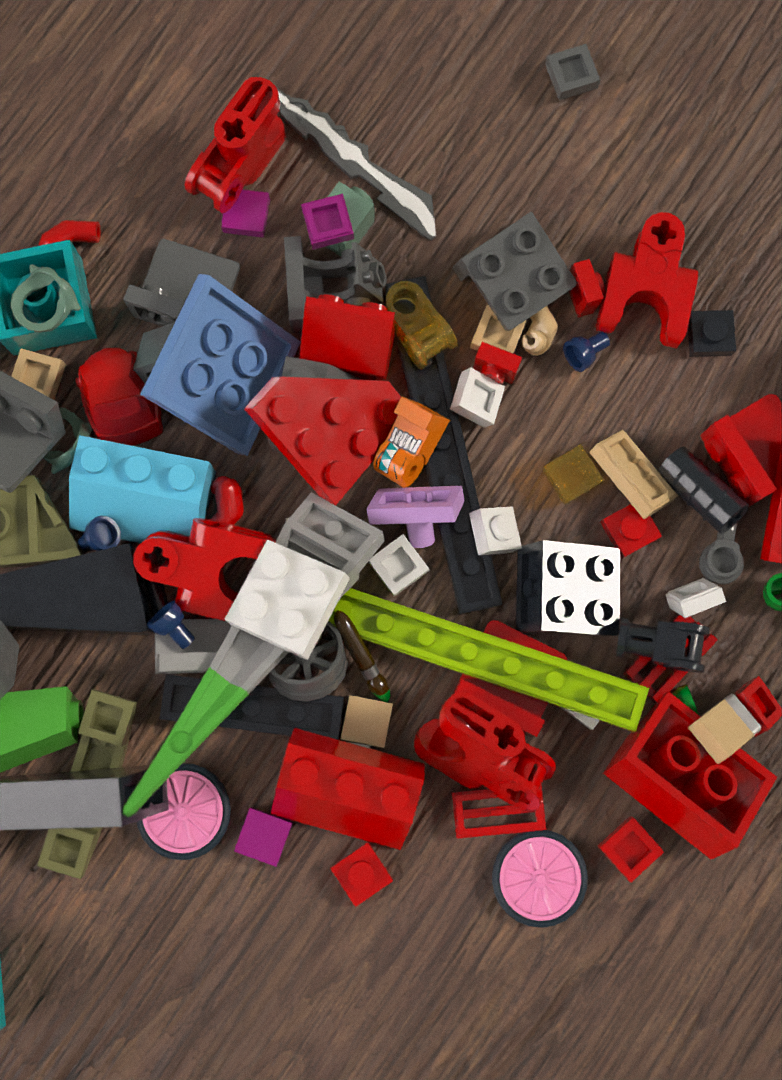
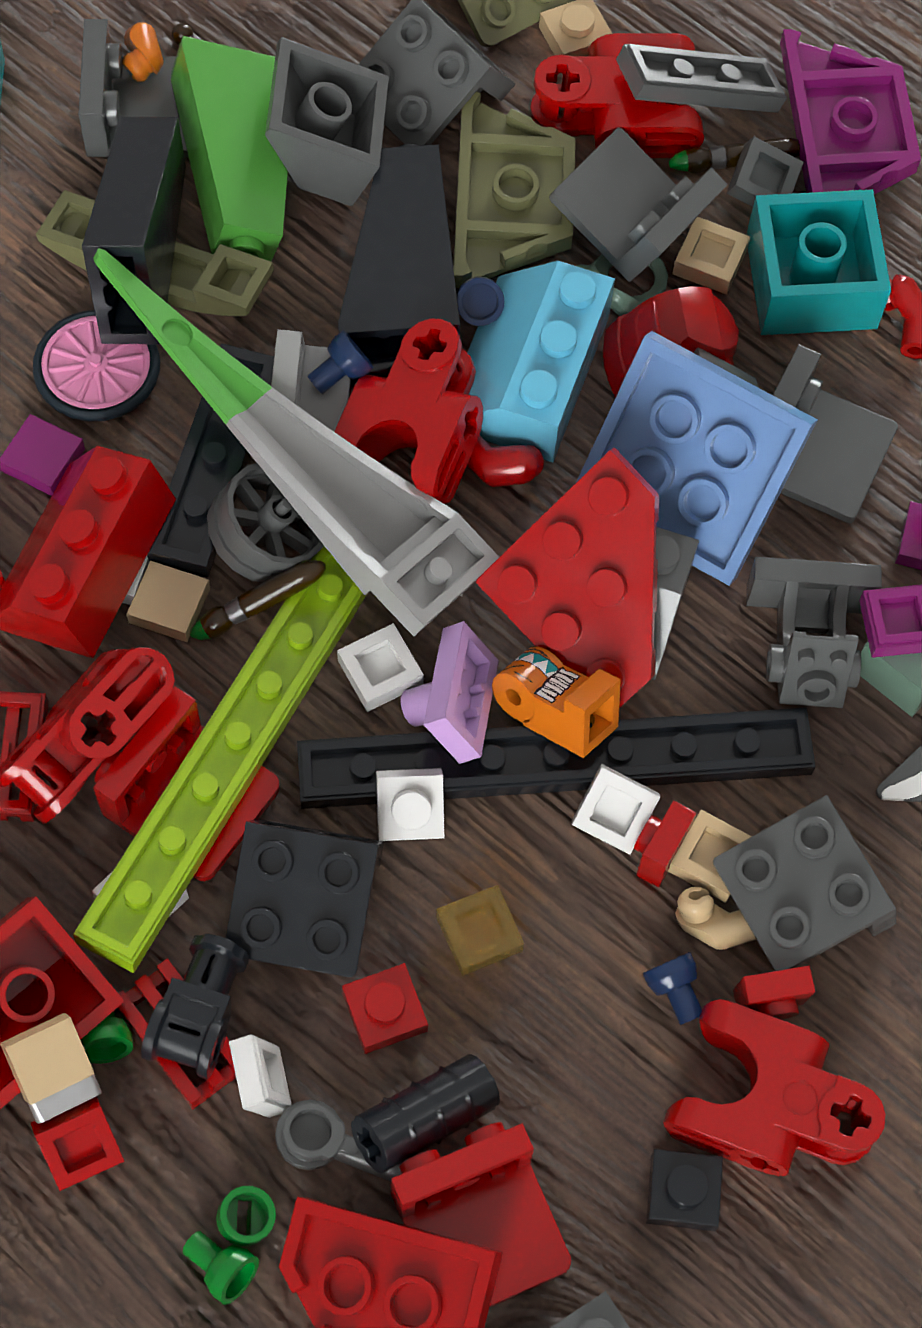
camera: 95 degrees right, 15 degrees down
(36, 281) = (832, 244): sand green piece -> none
(287, 599) = (345, 486): white plate -> none
(348, 336) = (717, 632): red slope -> none
(423, 330) = (723, 736): clear yellow piece -> none
(633, 474) = (467, 1016): tan plate -> none

